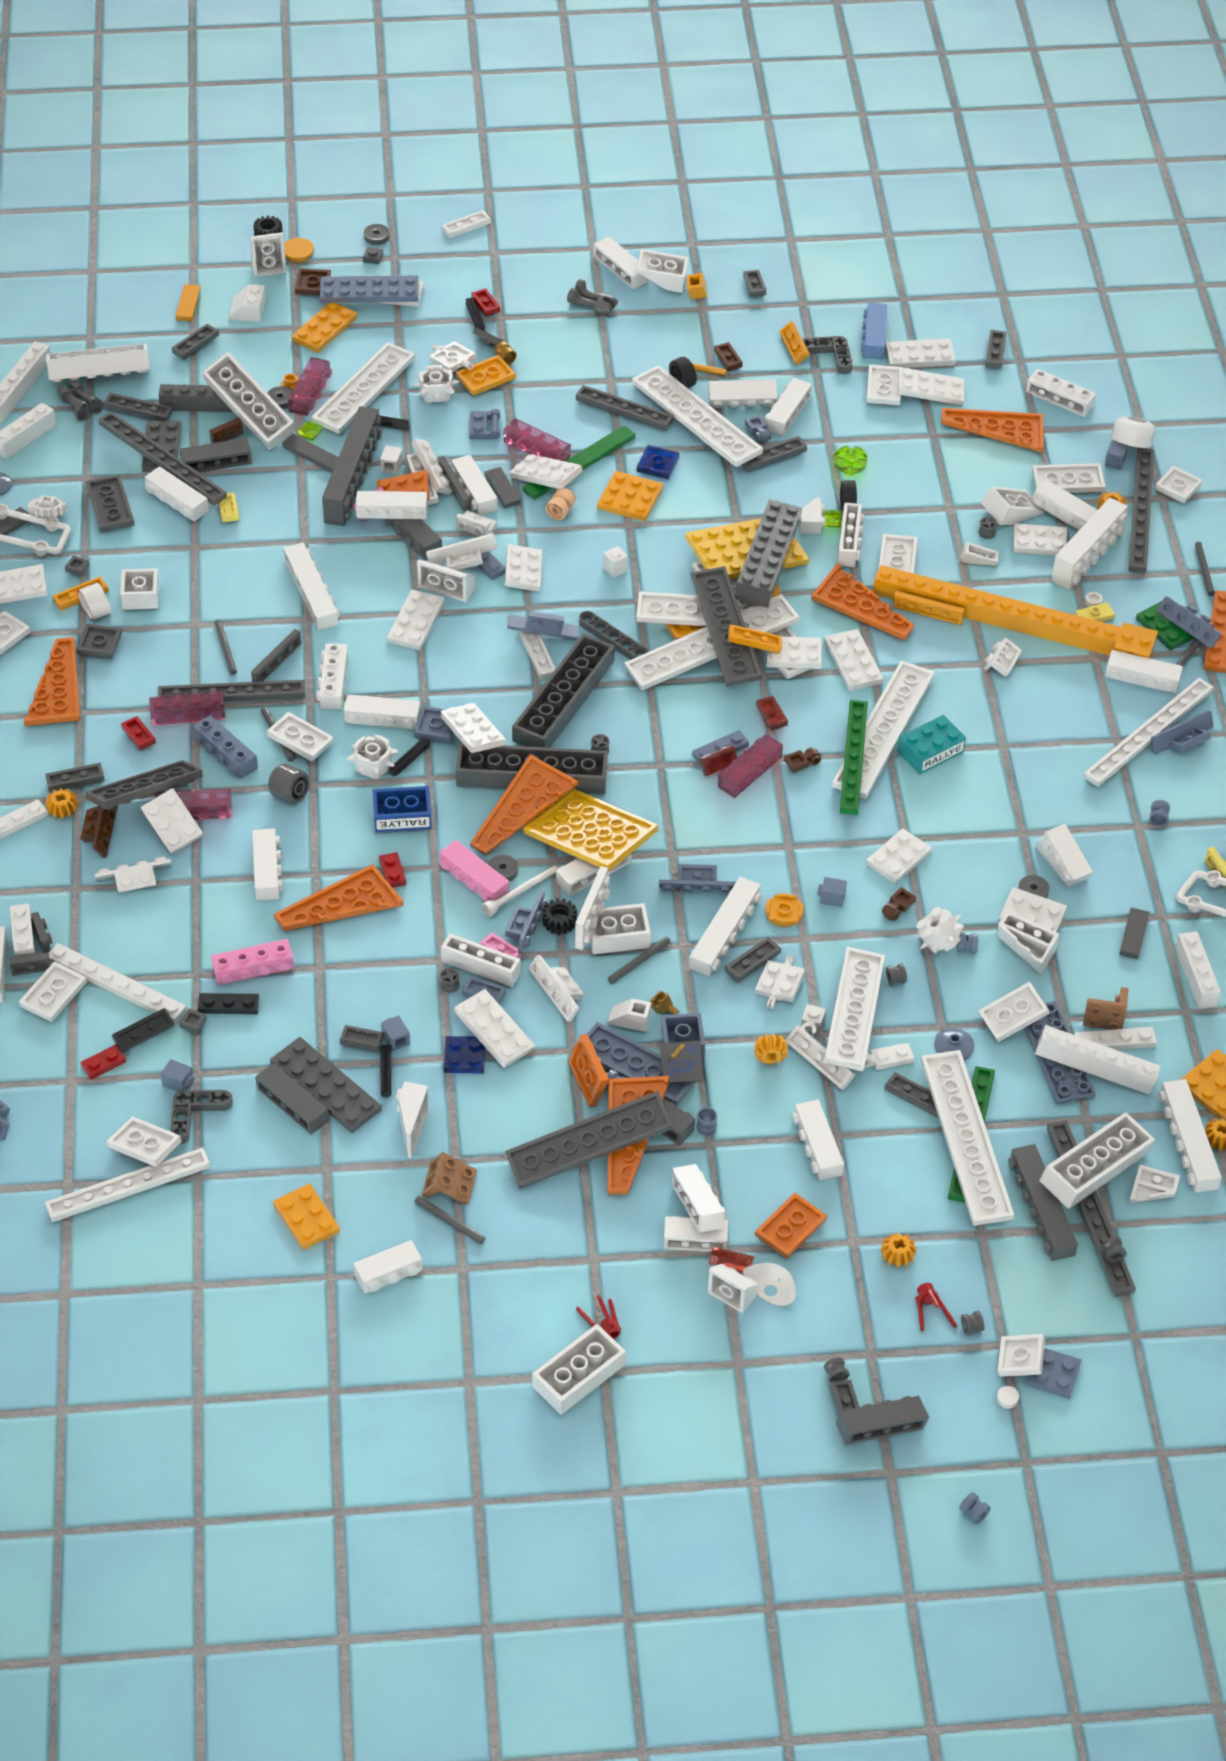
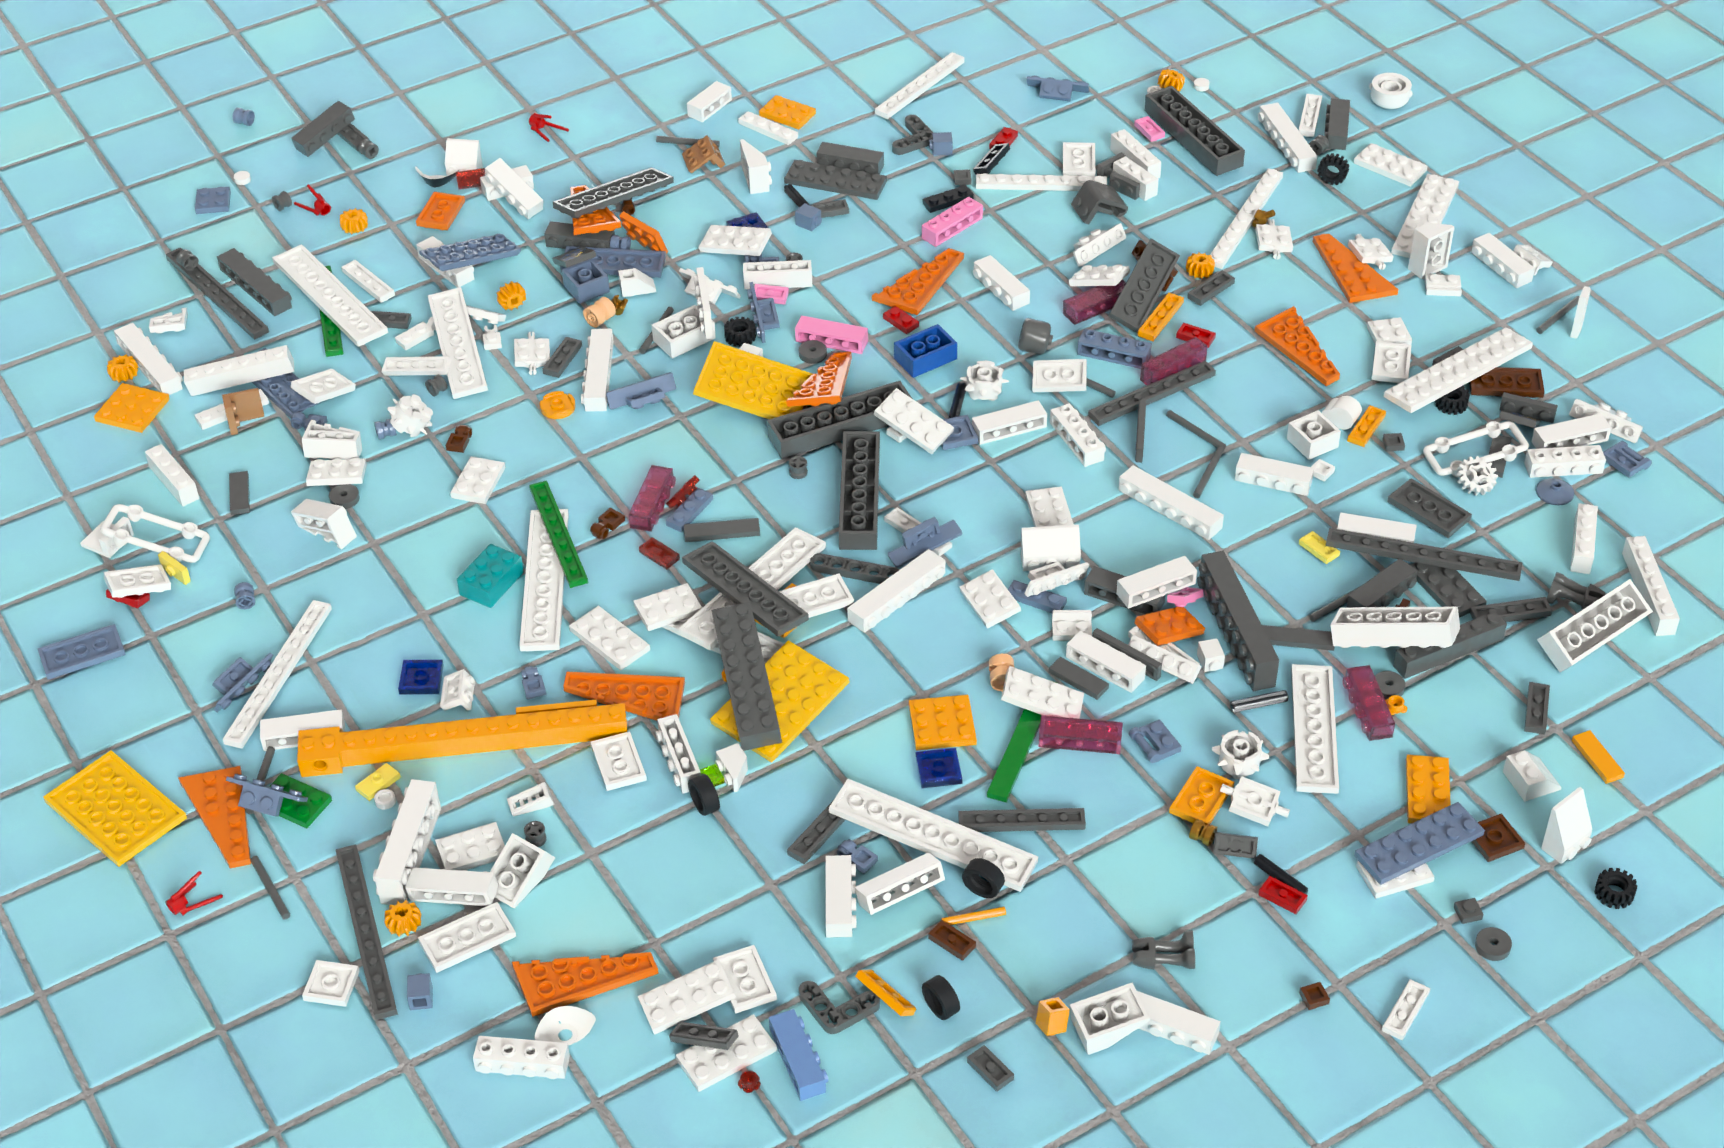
camera: 155 degrees right, 5 degrees down
(88, 914) = (1098, 197): none -> dark grey piece
(99, 641) = (1304, 390): dark grey plate -> none
(144, 1141) = (929, 102): white plate -> none
(162, 564) = (1322, 470): none -> white plate
(165, 757) = (1160, 316): none -> light orange plate
(203, 575) = (1274, 474): none -> white brick
(251, 606) = (1208, 472): none -> dark grey bar
(252, 466) = (1330, 607): none -> dark grey bar
(298, 249) = (1557, 879): light orange tile -> none
(310, 430) = (1321, 656): clear neon green plate -> none
(345, 1200) = (768, 128): none -> white plate
(491, 907) = (788, 336): white piece -> none
(518, 246) = (1314, 995): none -> reddish brown plate
(578, 1369) = (543, 90): white brick -> none
(594, 599) = (896, 590): none -> white brick
(615, 561) = (903, 634): white brick -> none
(688, 994) = (599, 312): none -> light nougat wheel
(703, 717) = (721, 530): none -> dark grey tile
(706, 1121) = (537, 244): sand blue wheel -> none
(754, 638) = (706, 579): light orange tile -> none
(762, 319) = (940, 997): none -> black tyre
(789, 1124) = (471, 252): none -> sand blue plate
(832, 892) = (521, 425): sand blue brick -> none
(856, 463) = (730, 869): clear neon green plate -> none
(908, 998) = (416, 366): none -> white plate
(914, 330) = (745, 1078): none -> clear red plate
(914, 1151) = (368, 281): none -> white plate
(931, 356) = (704, 1035): none -> dark grey tile
(936, 642) = (532, 682): none -> sand blue plate
(953, 1040) = (367, 364): sand blue dish -> none
(995, 349) = (632, 1095): dark grey plate -> none
(1021, 1355) = (238, 192): white plate -> none
(1028, 681) = (420, 677): none -> clear blue plate
(1032, 403) = (571, 1018): none -> white piece
(1048, 992) = (299, 420): none -> sand blue plate
(1097, 1160) = (216, 302): white brick -> none
(1133, 432) = (405, 1033): white piece -> none

